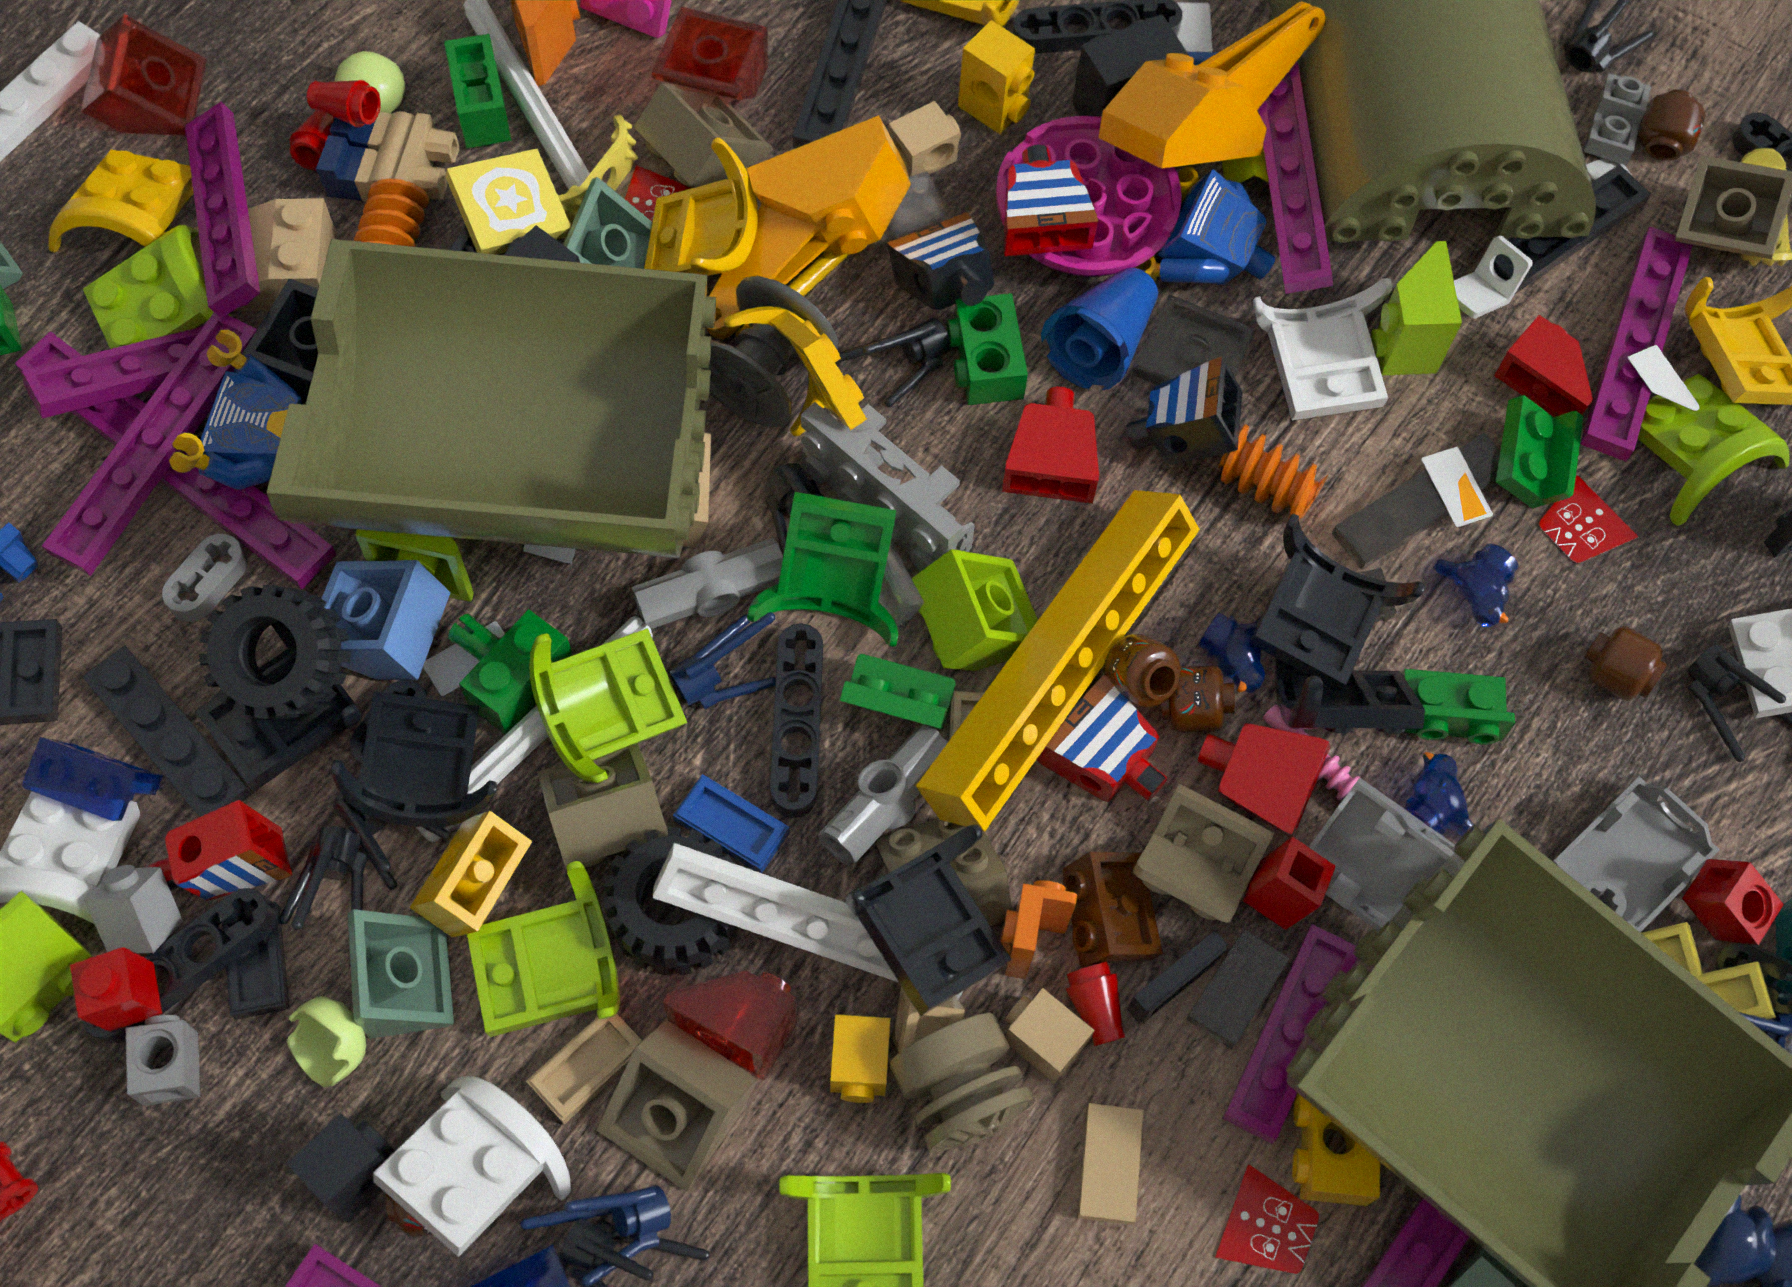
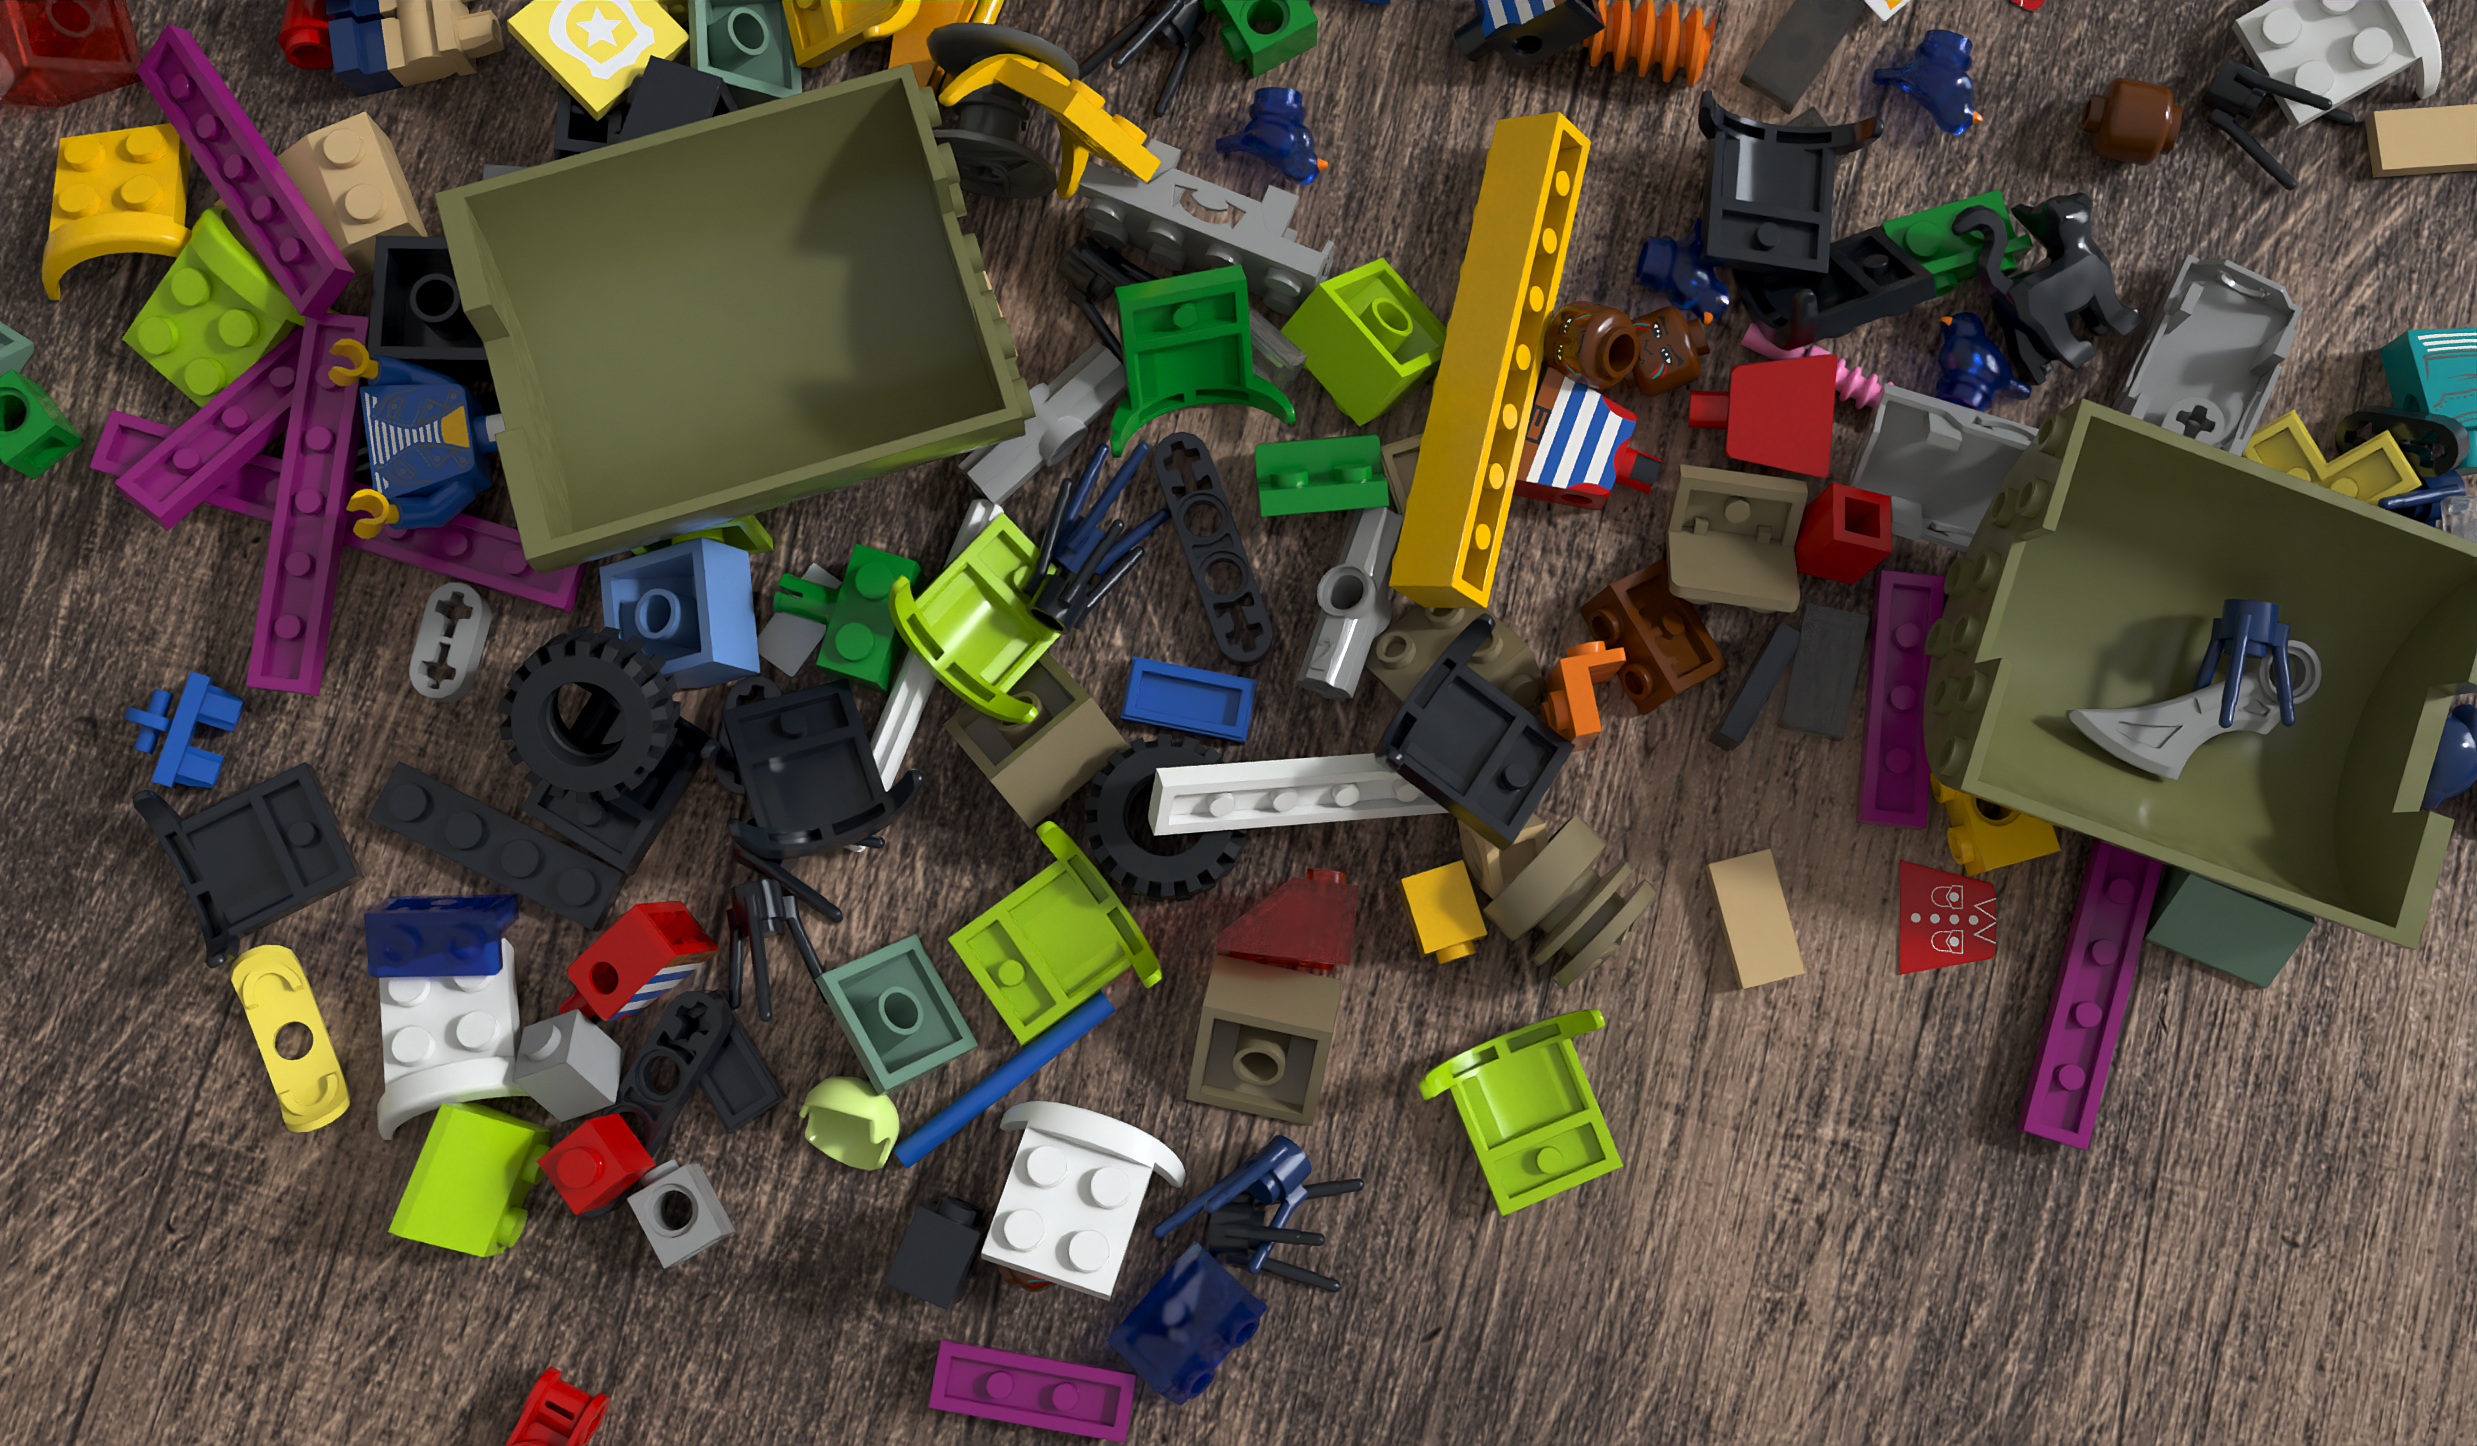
camera: 15 degrees left, 15 degrees up
(392, 213) = (458, 116): orange piece -> none
(460, 1058) = (1003, 1079): none -> blue bar
(471, 874) = (928, 878): yellow brick -> none
(584, 1066) = (1144, 1036): tan tile -> none
(663, 706) = (1061, 598): none -> black plant
(968, 445) = (1278, 135): none -> clear blue animal
(1046, 1034) = (1636, 806): tan brick -> none
(1054, 451) = (1382, 102): red torso -> none
(1097, 1001) = (1676, 748): red cone -> none
(1500, 1133) = (2168, 732): none -> light grey piece
(1509, 766) = (2041, 300): none -> black animal
(1587, 1072) = (2245, 633): none -> dark blue plant
(1733, 901) = (2337, 365): red brick -> none

